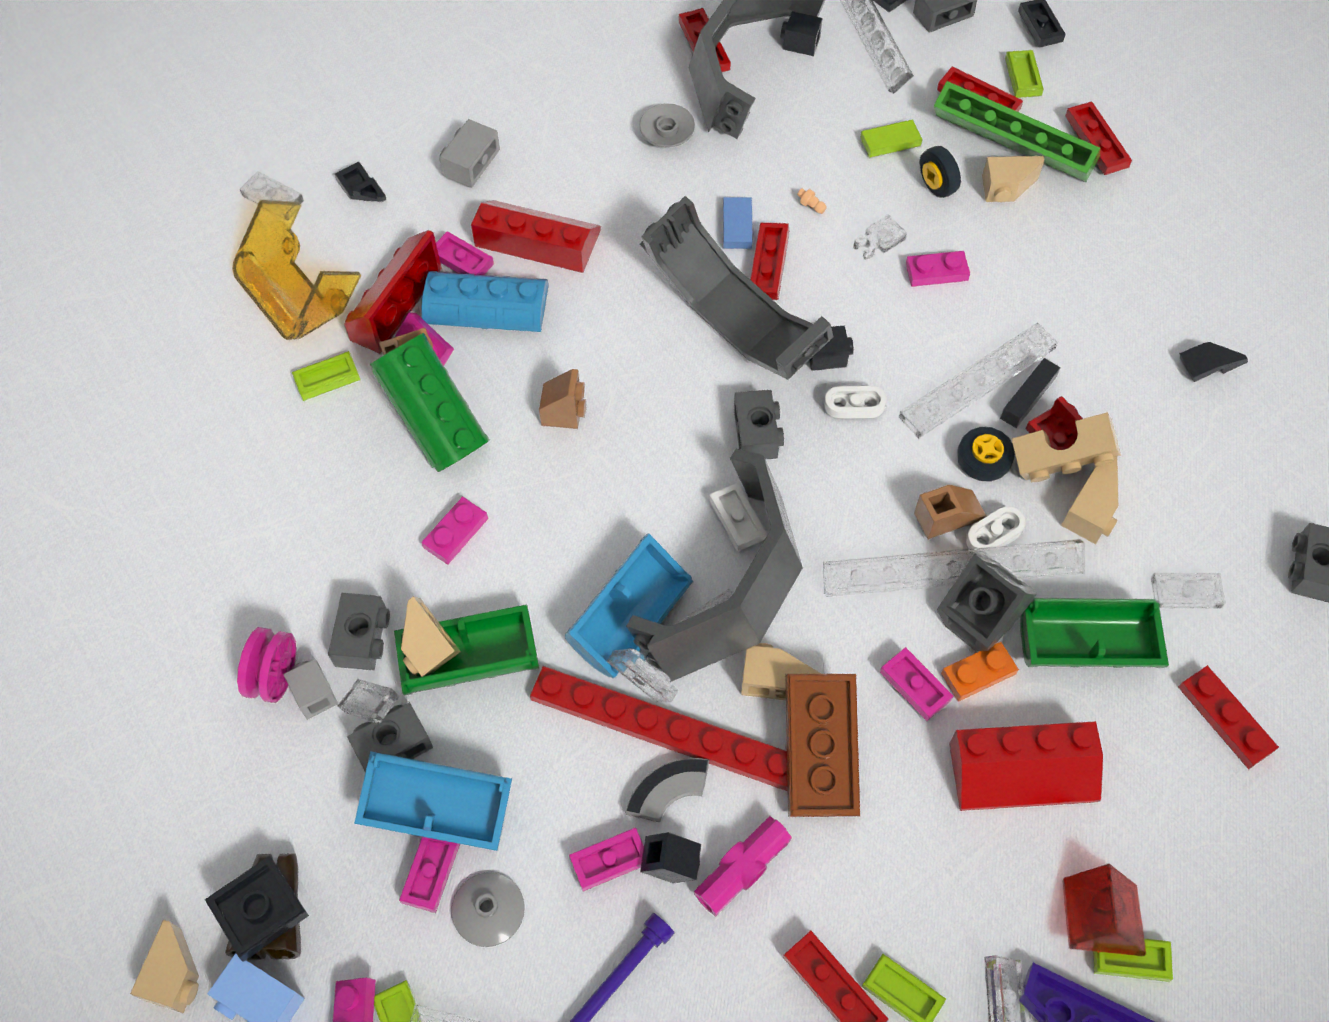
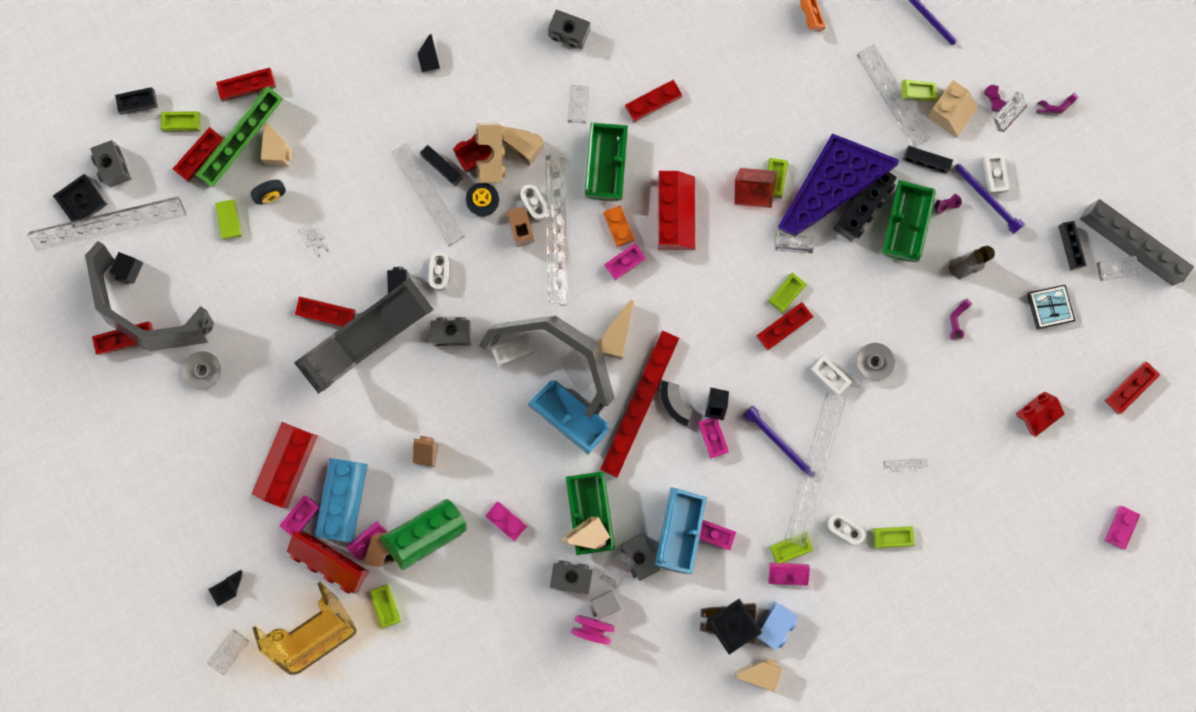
camera: 90 degrees left, 20 degrees up
(469, 153) = (212, 510): light grey brick -> none
(490, 927) = (723, 503): light grey dish -> none
(649, 680) = (609, 416): clear plate -> none
(737, 222) = (289, 330): medium blue tile -> none
(742, 865) = (720, 366): dark pink piece -> none
(809, 199) = (274, 281): light nougat piece -> none
(822, 745) = (659, 317): dark orange tile -> none
(937, 268) = (341, 206): dark pink plate -> none
(984, 603) = (582, 215): dark grey slope -> none

